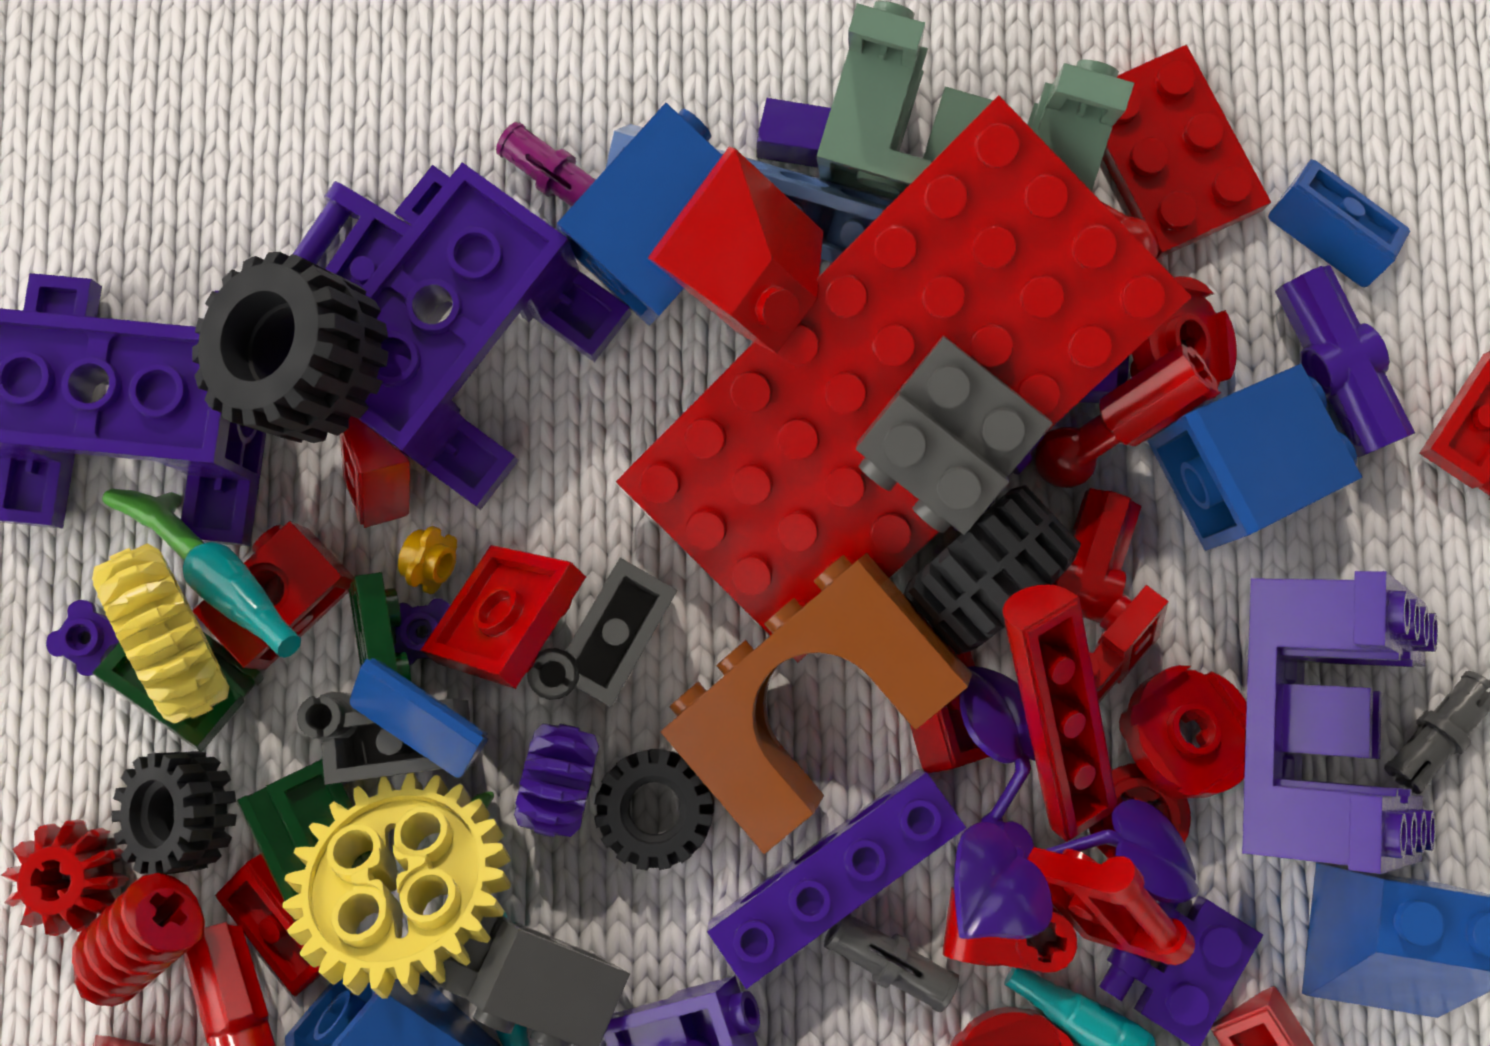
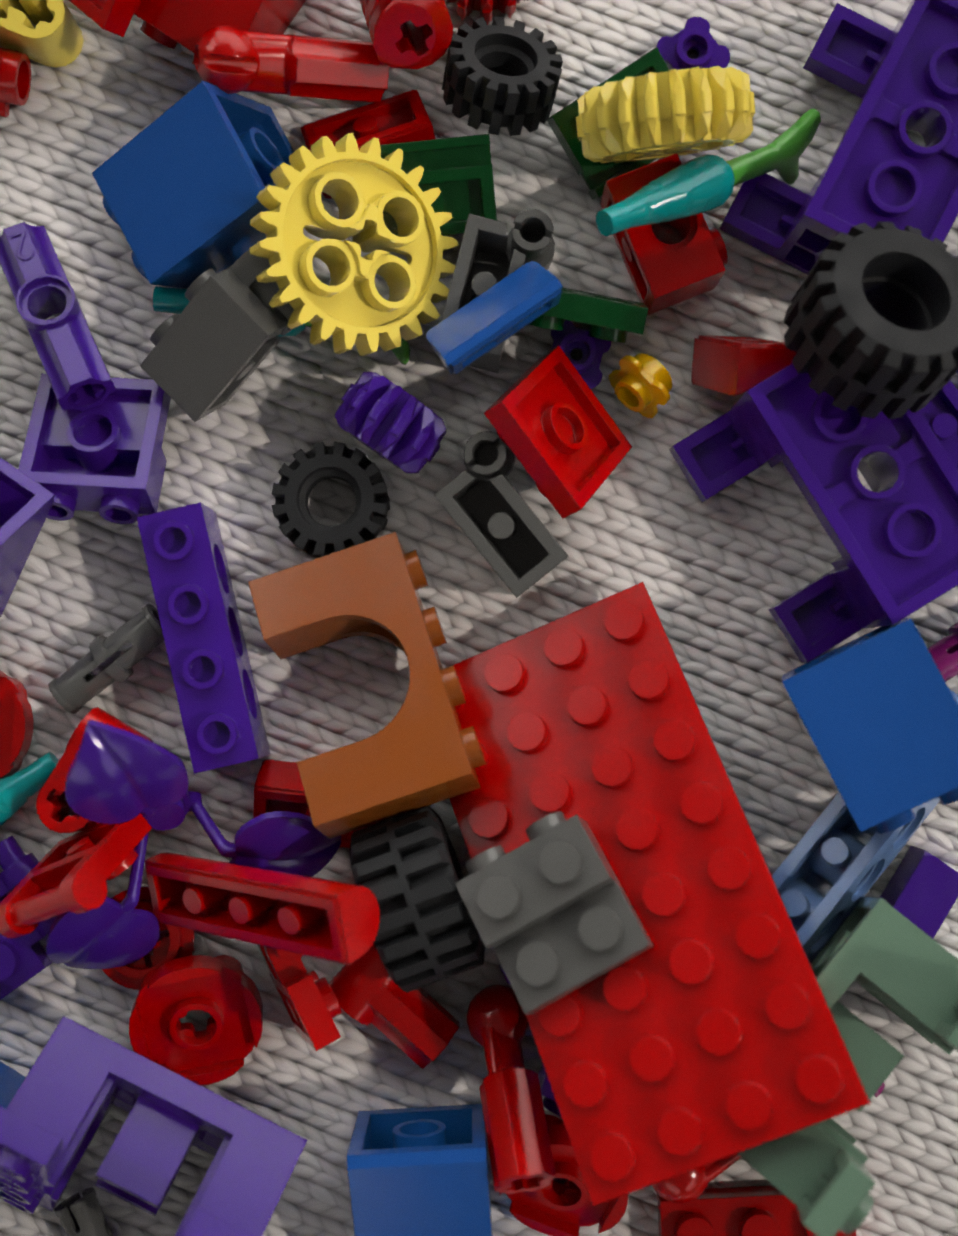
camera: 110 degrees right, 5 degrees up
(745, 252) = (812, 789): red slope -> none

